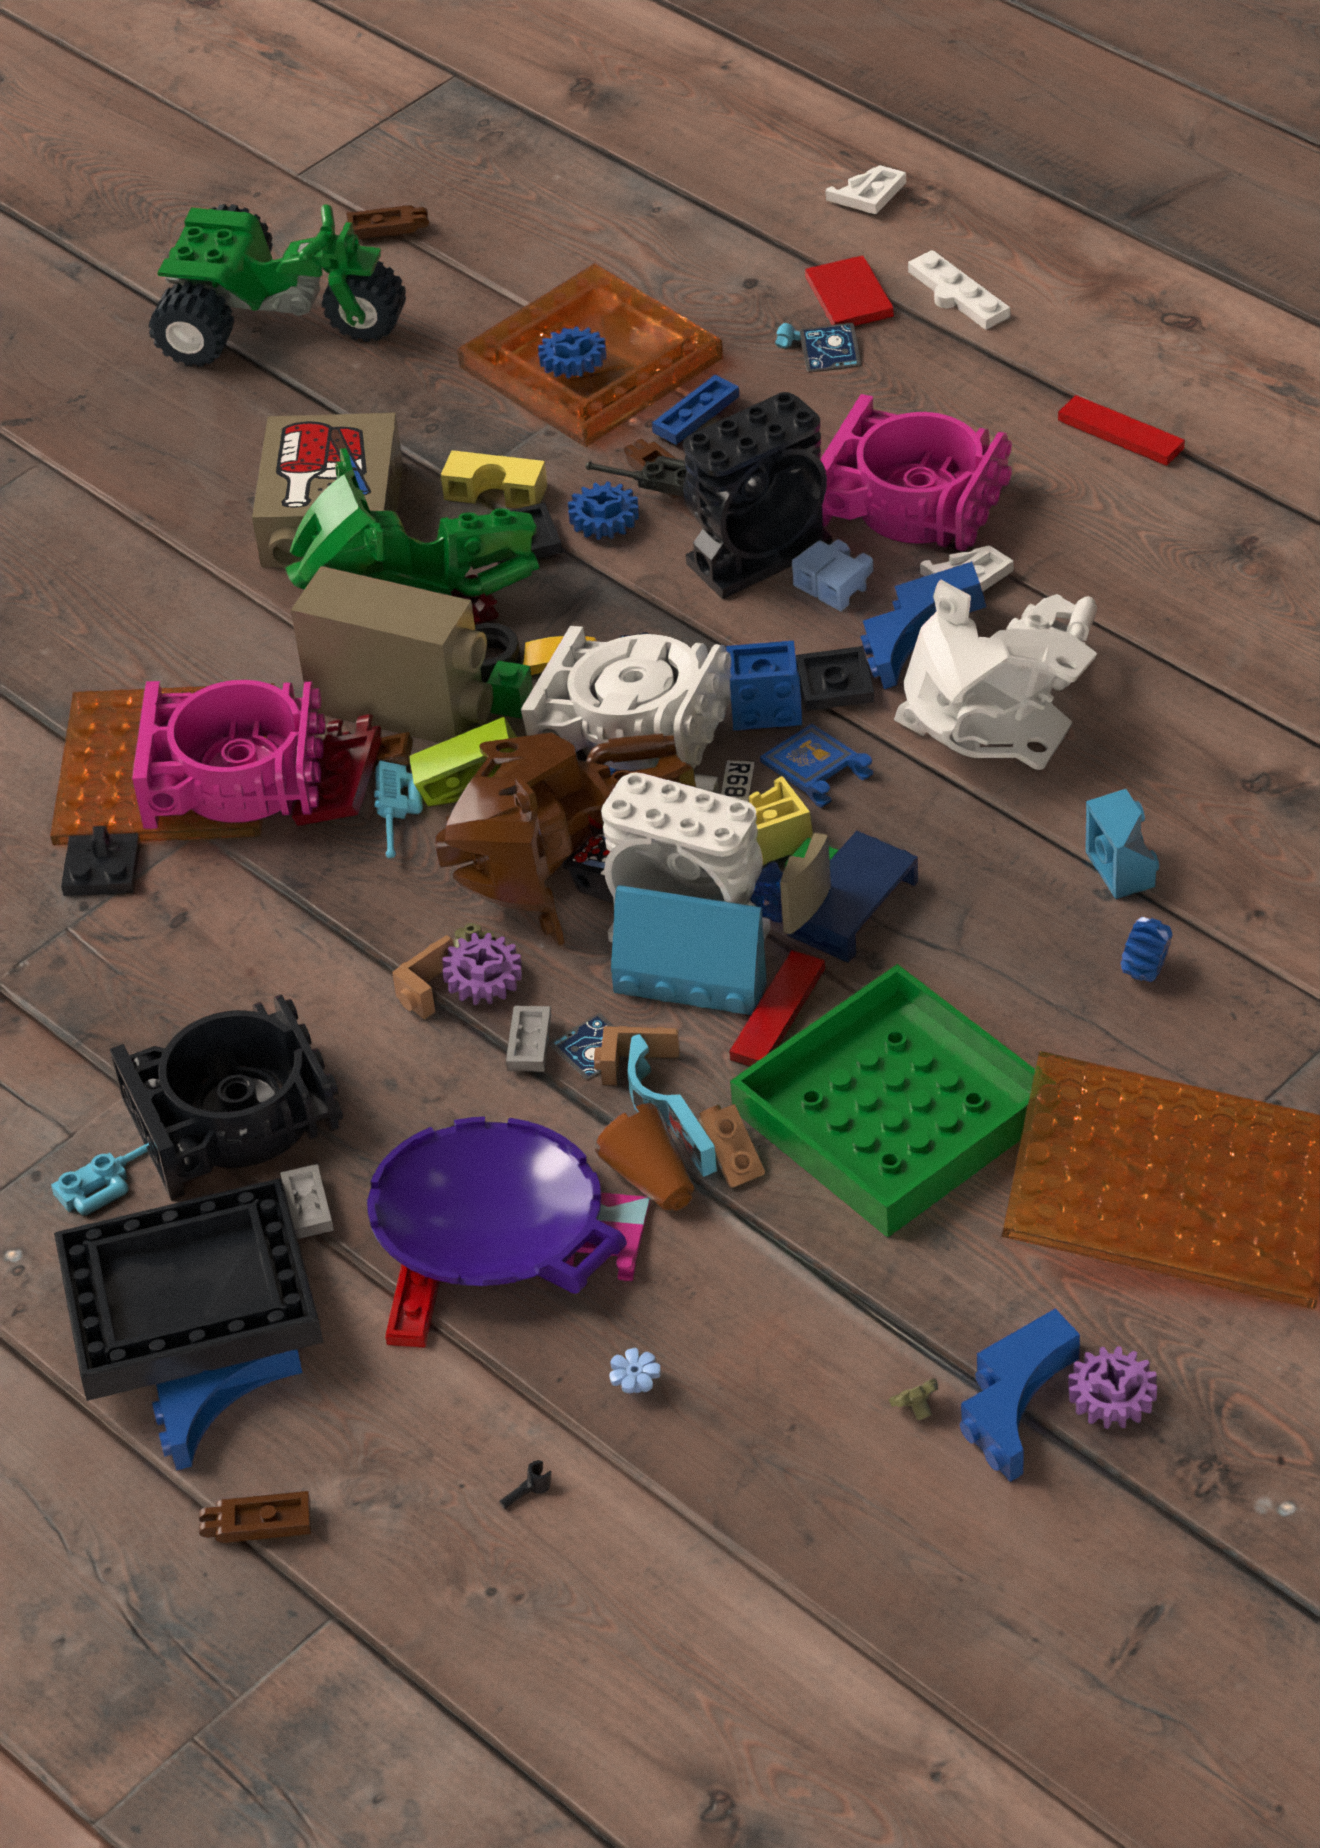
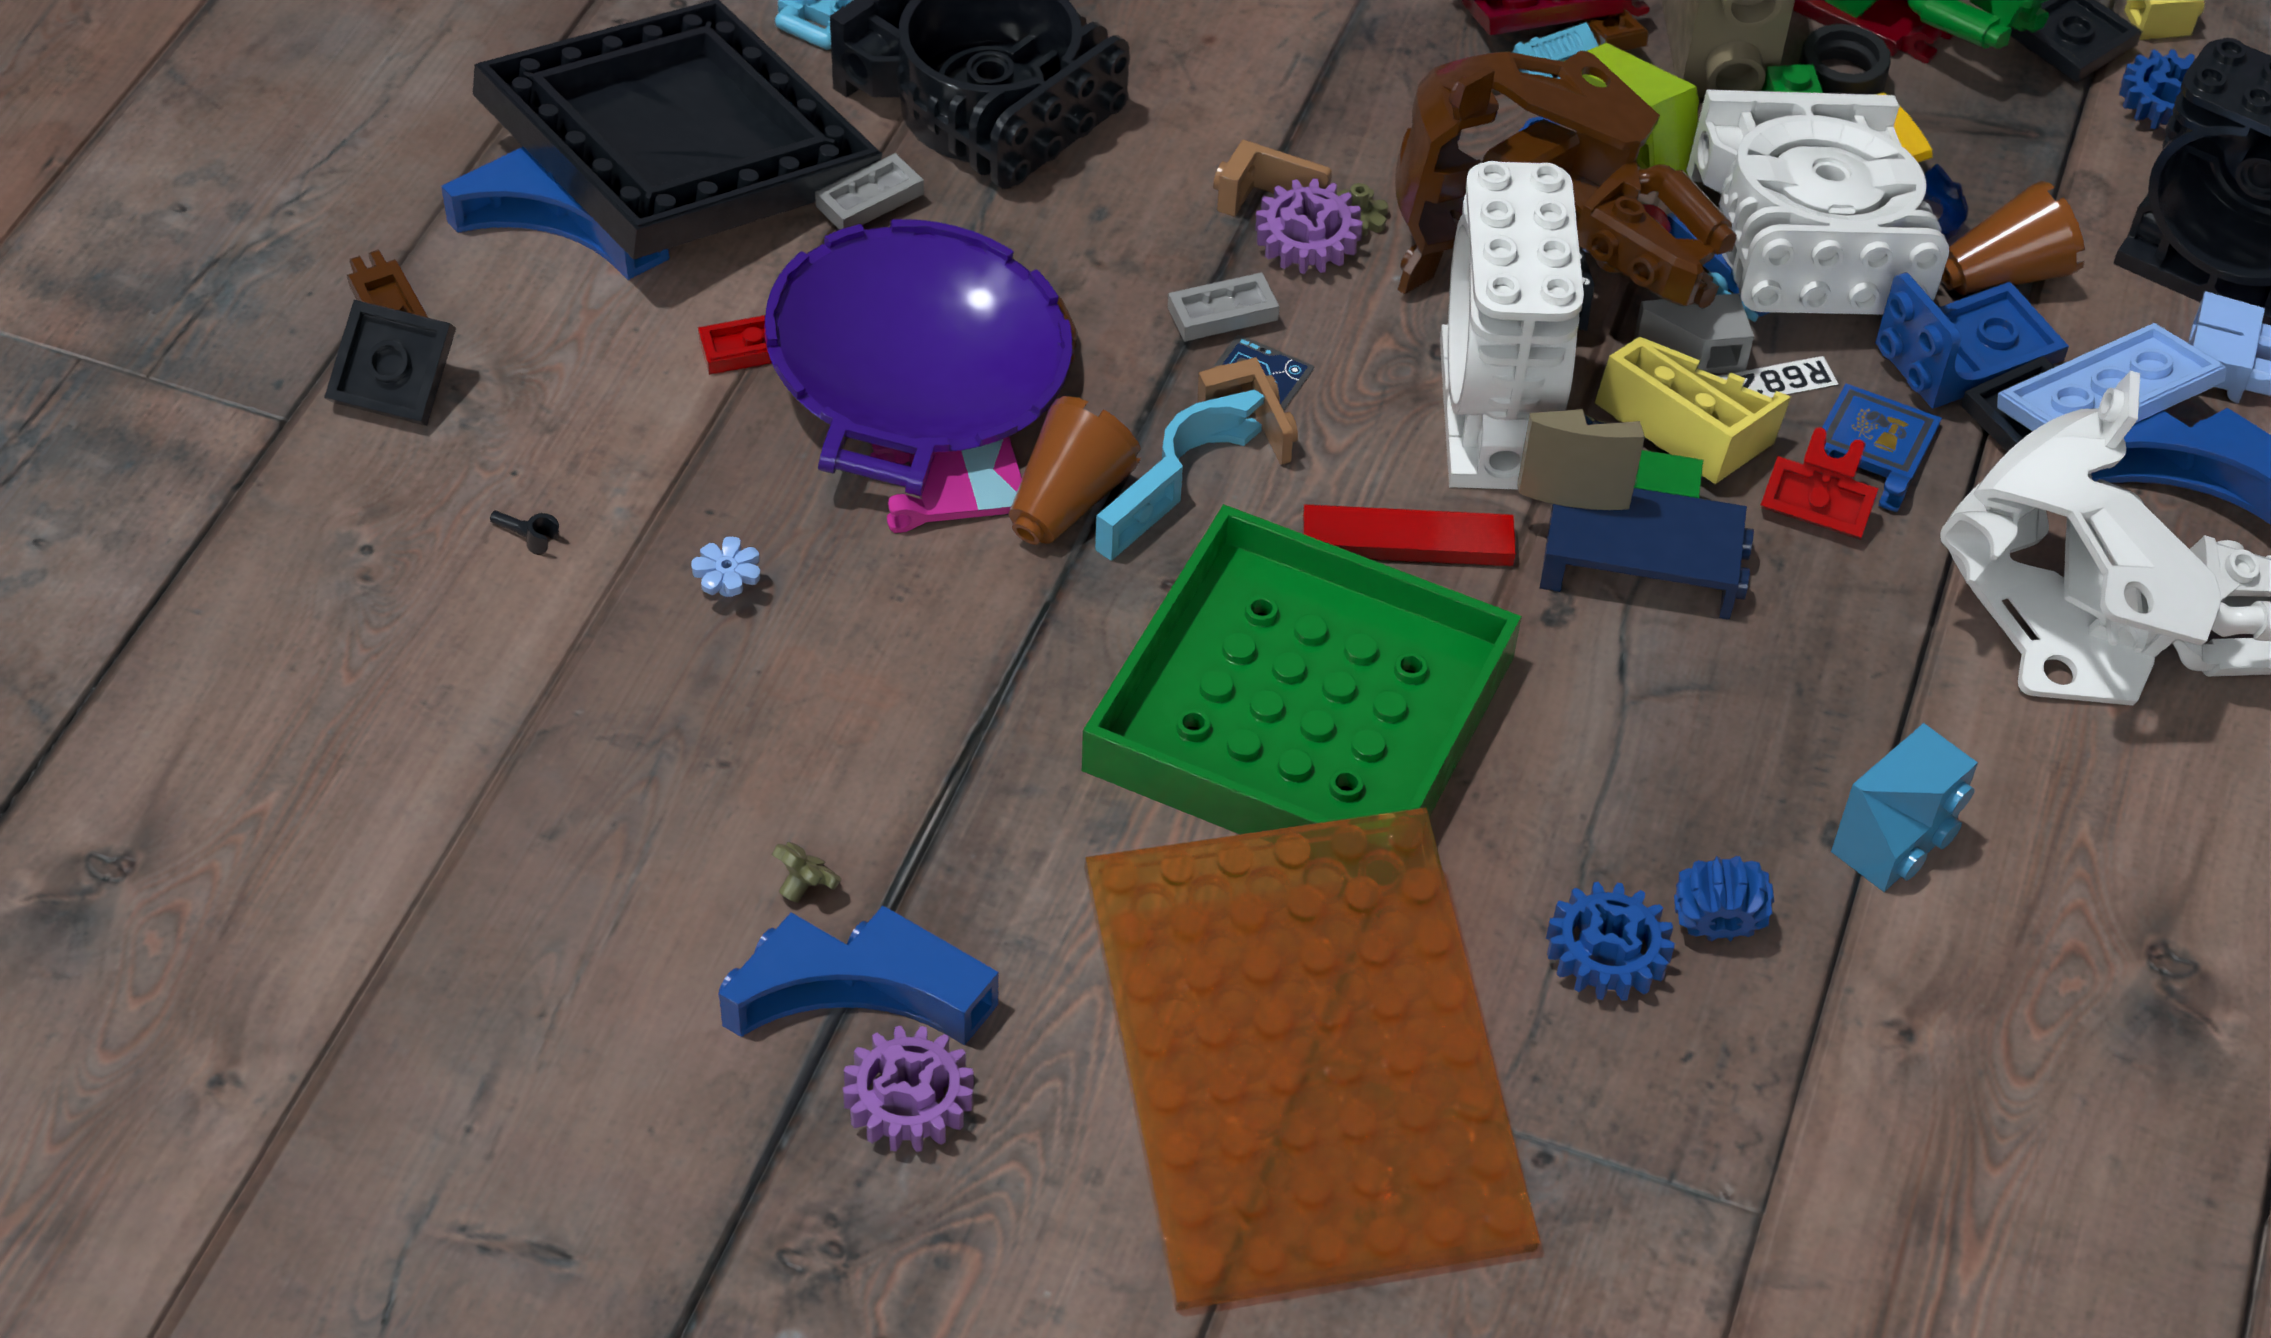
camera: 60 degrees right, 5 degrees up
(333, 1522) = (390, 362): none -> black hinge
(688, 950) = (1414, 396): dark azure slope -> none
(702, 614) = (2017, 244): none -> dark orange cone
(732, 1145) = (1141, 548): medium nougat bracket -> none
(847, 631) = (2167, 370): none -> light blue tile
(848, 792) = (1822, 488): none -> red plate
(1147, 1015) = (1610, 941): none -> blue gear

